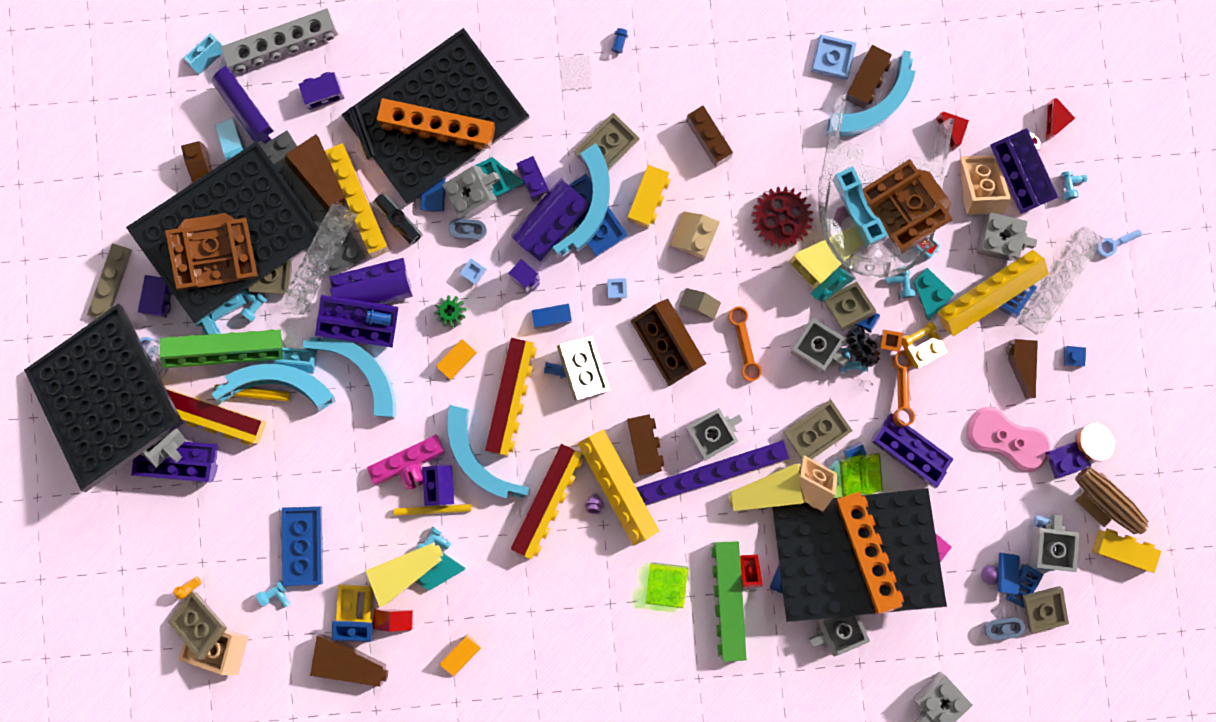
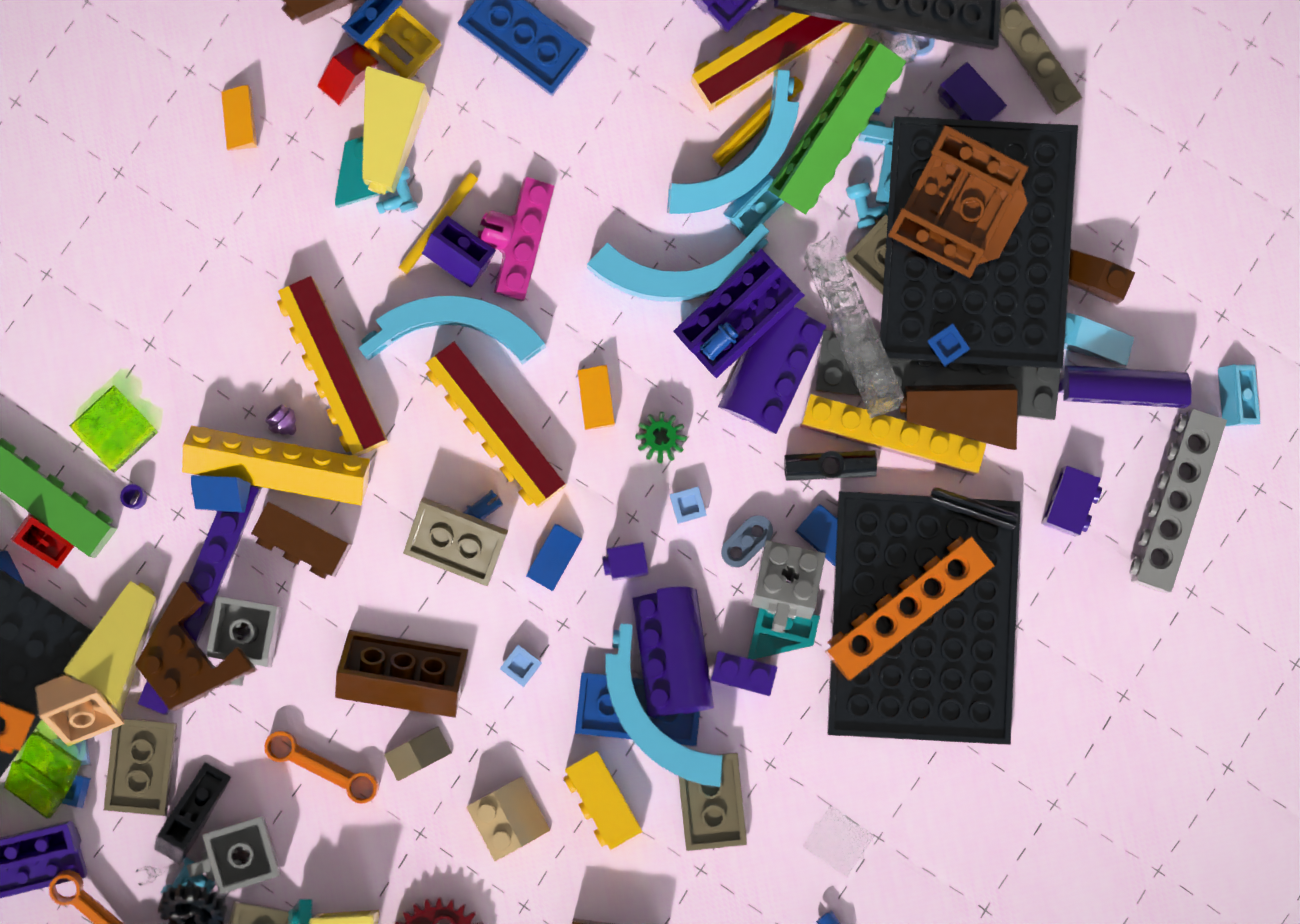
camera: 125 degrees right, 0 degrees up
(289, 204) = (948, 345): none -> blue plate
(655, 503) = (220, 493): none -> blue slope
(692, 549) = (129, 495): none -> dark purple hinge
(754, 452) = (177, 664): none -> reddish brown wing
(818, 387) = (191, 813): none -> black slope

